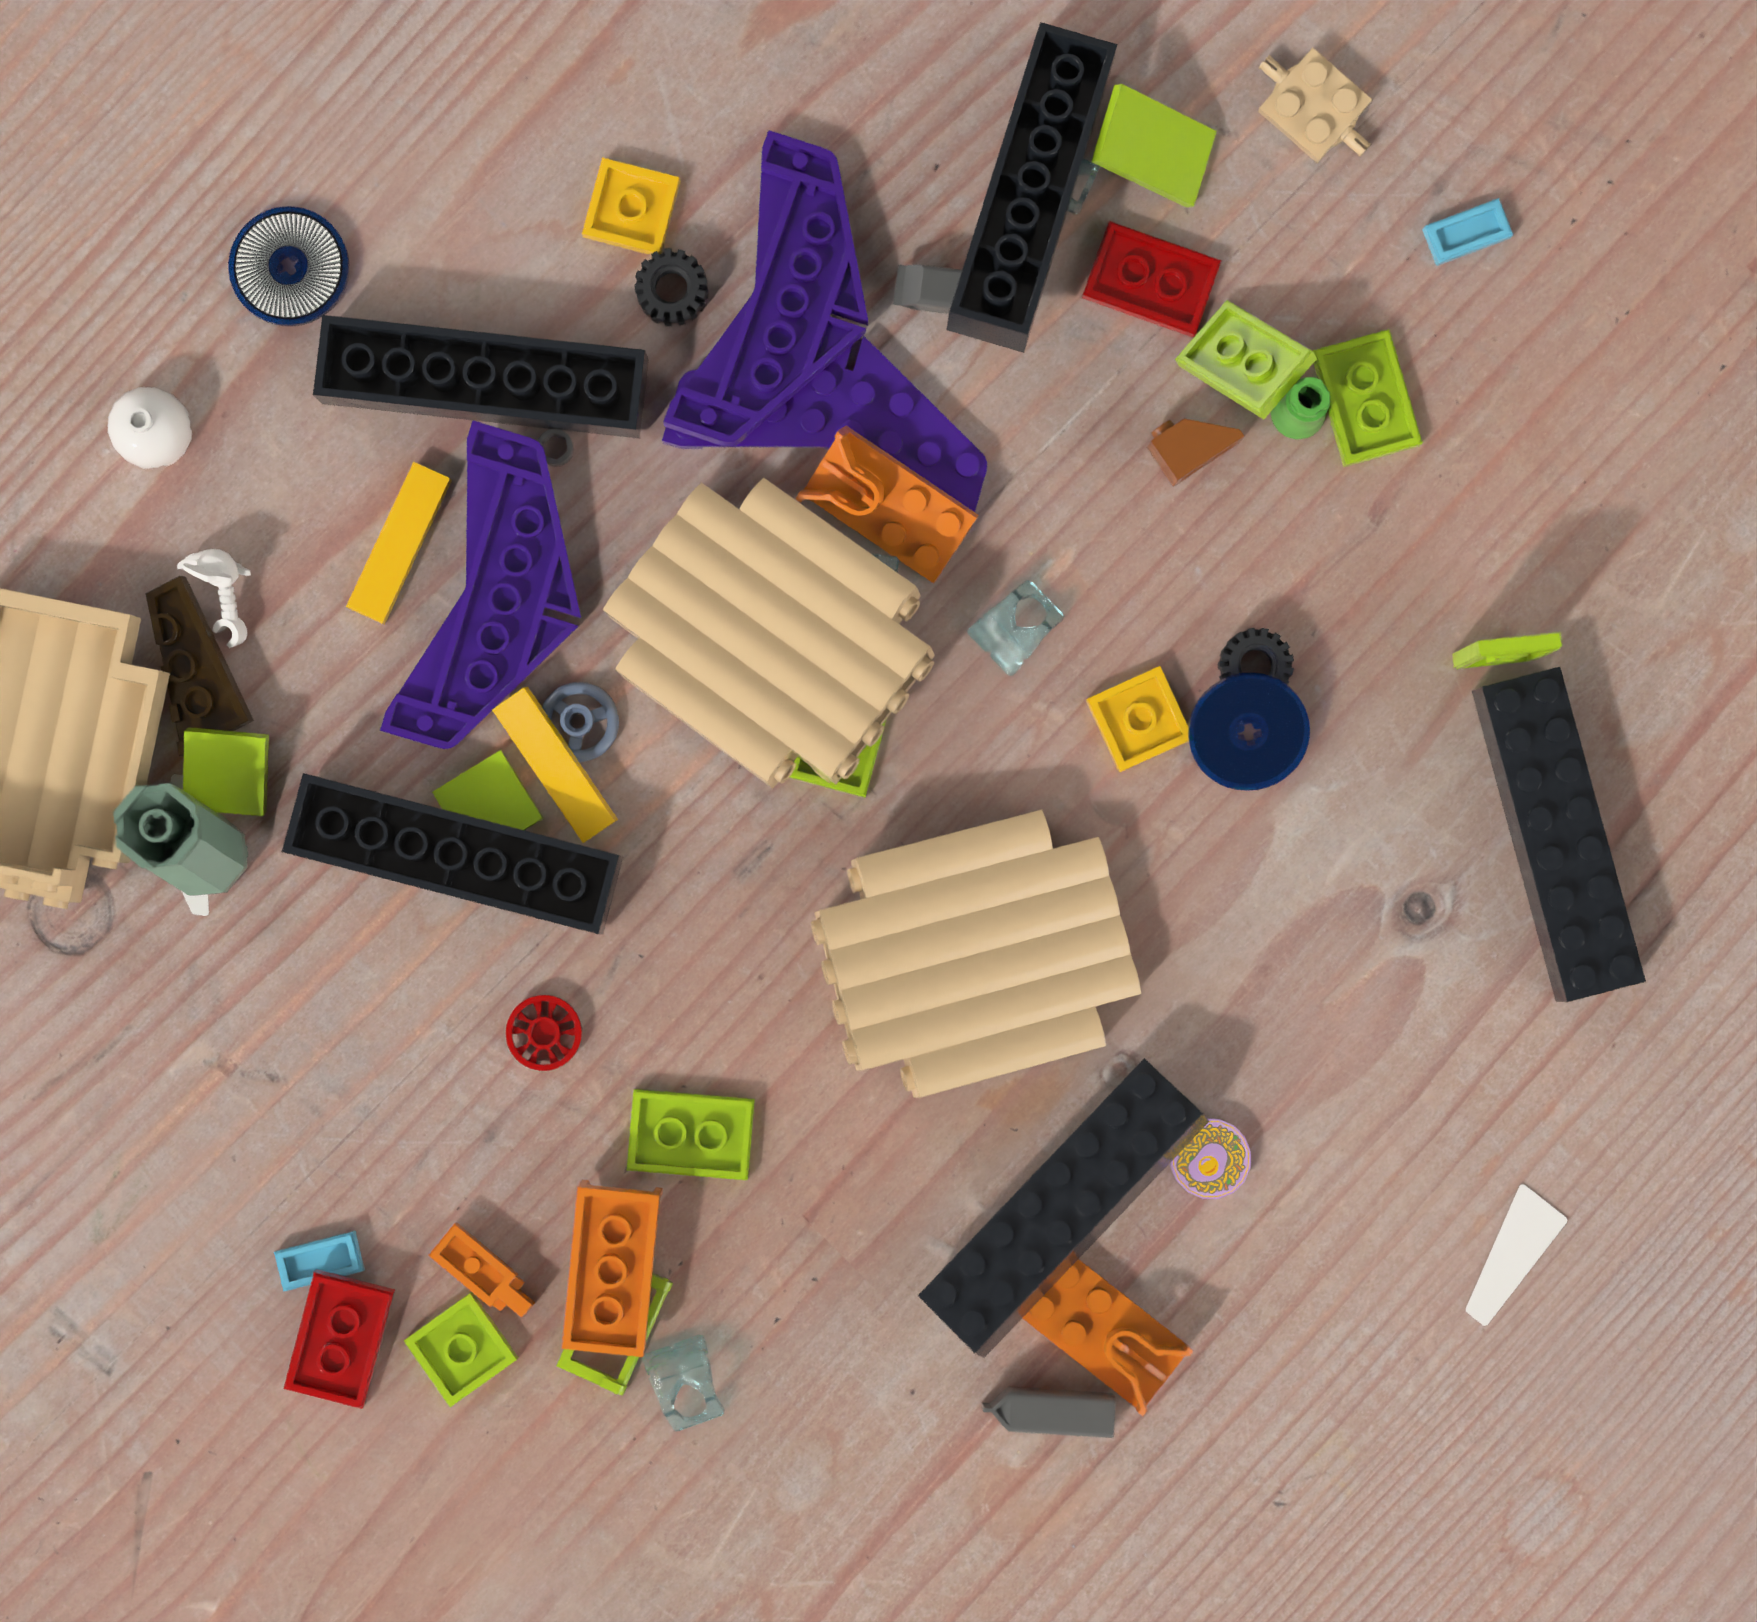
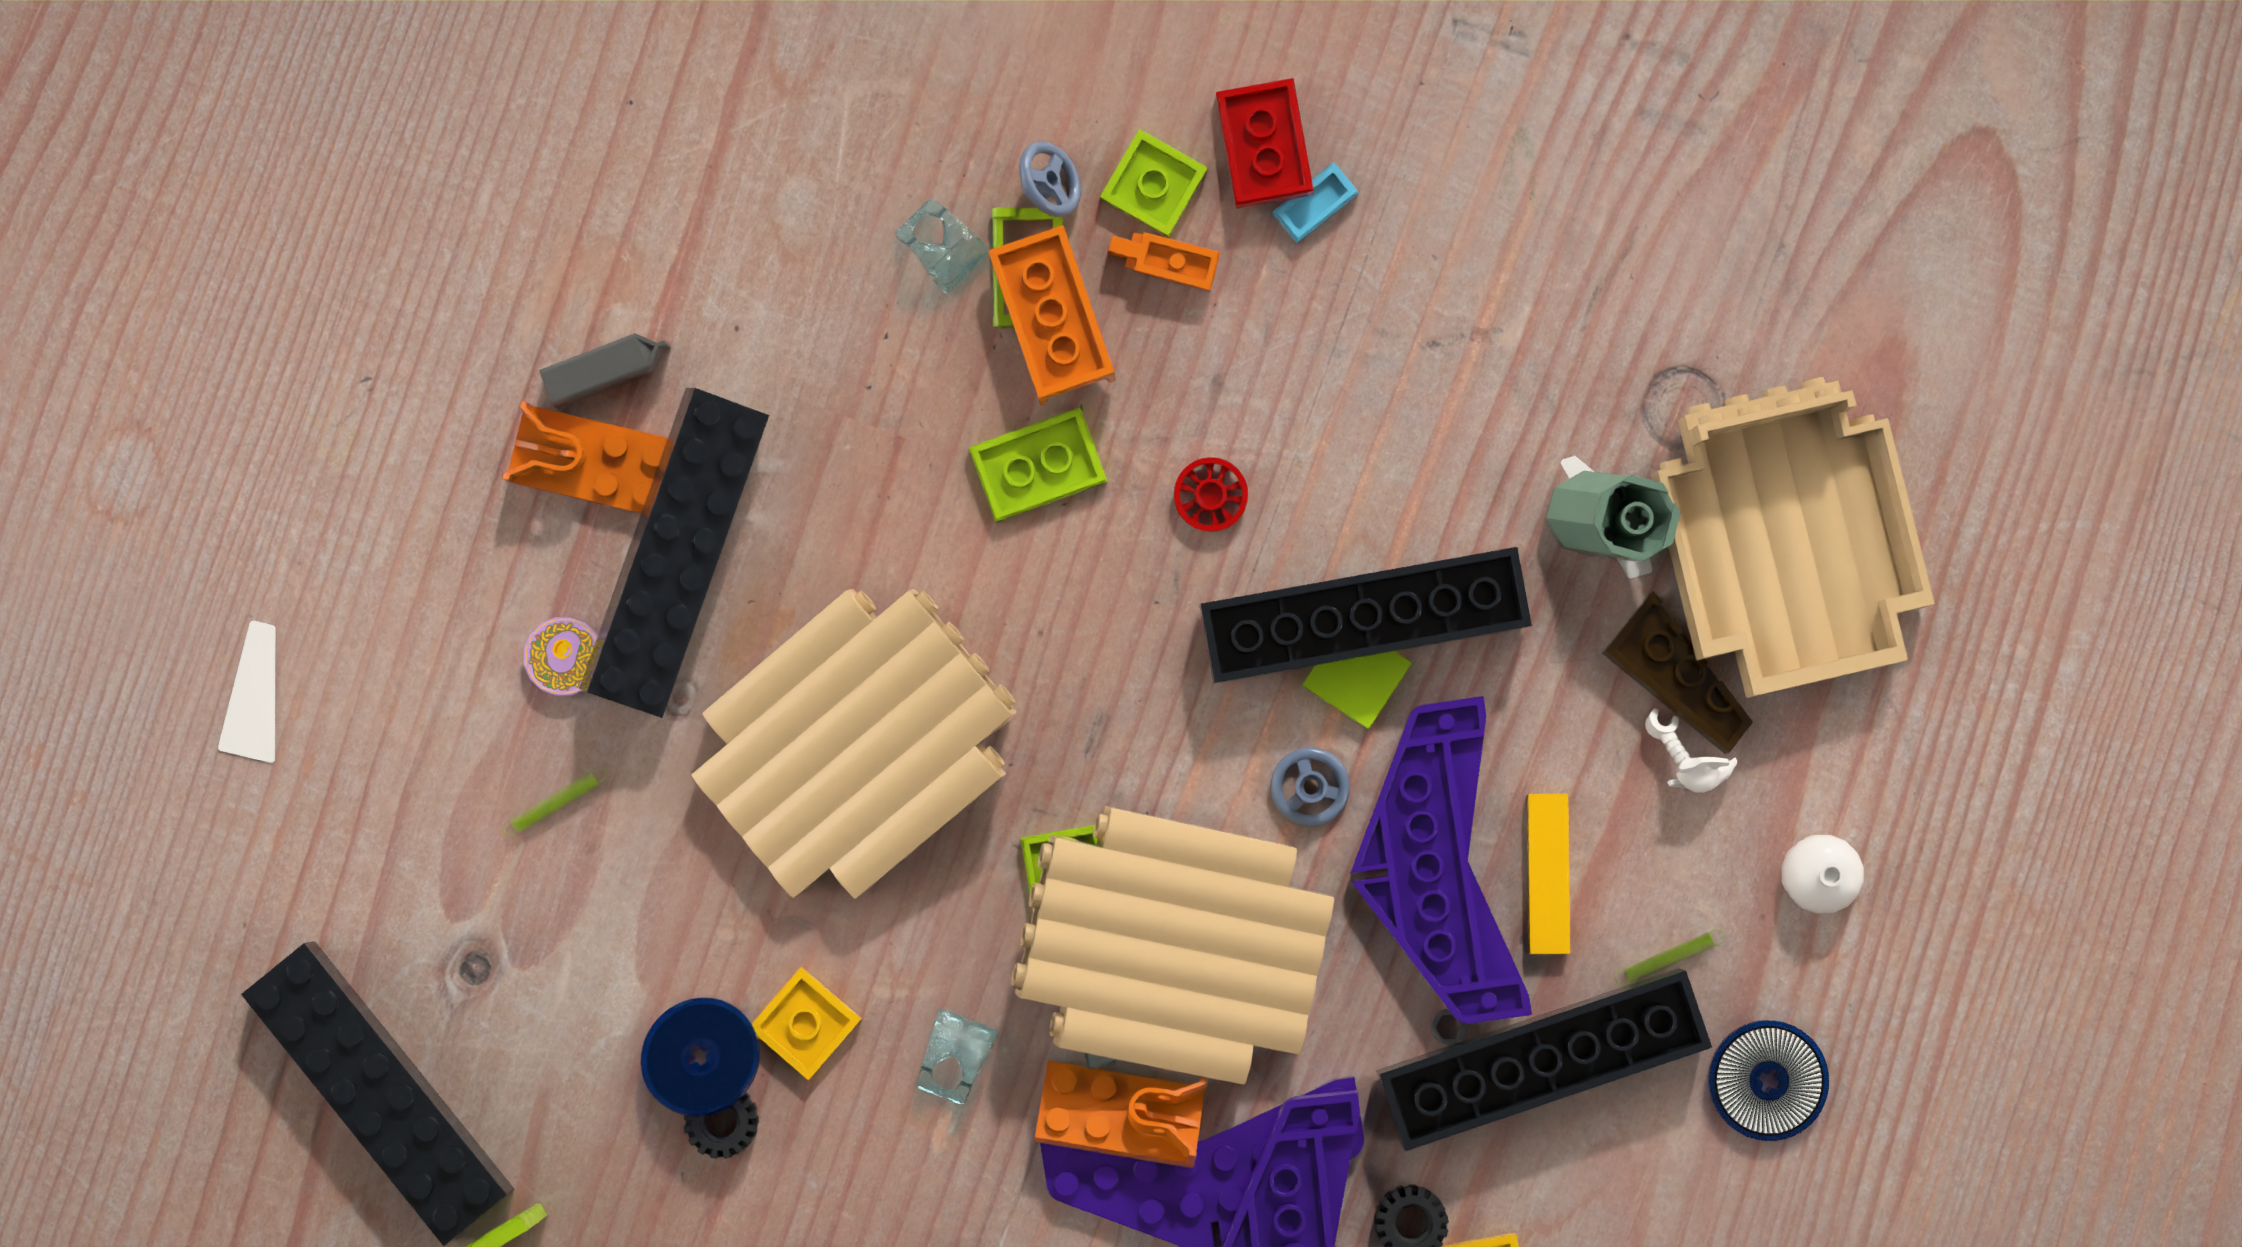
camera: 155 degrees right, 0 degrees up
(227, 770) = (1603, 597): lime tile -> none
(325, 415) = (1668, 956): none -> lime piece
(555, 764) = (1312, 738): yellow tile -> none
(559, 1396) = (1045, 183): none -> sand blue piece
(1292, 1023) = (558, 803): none -> lime piece

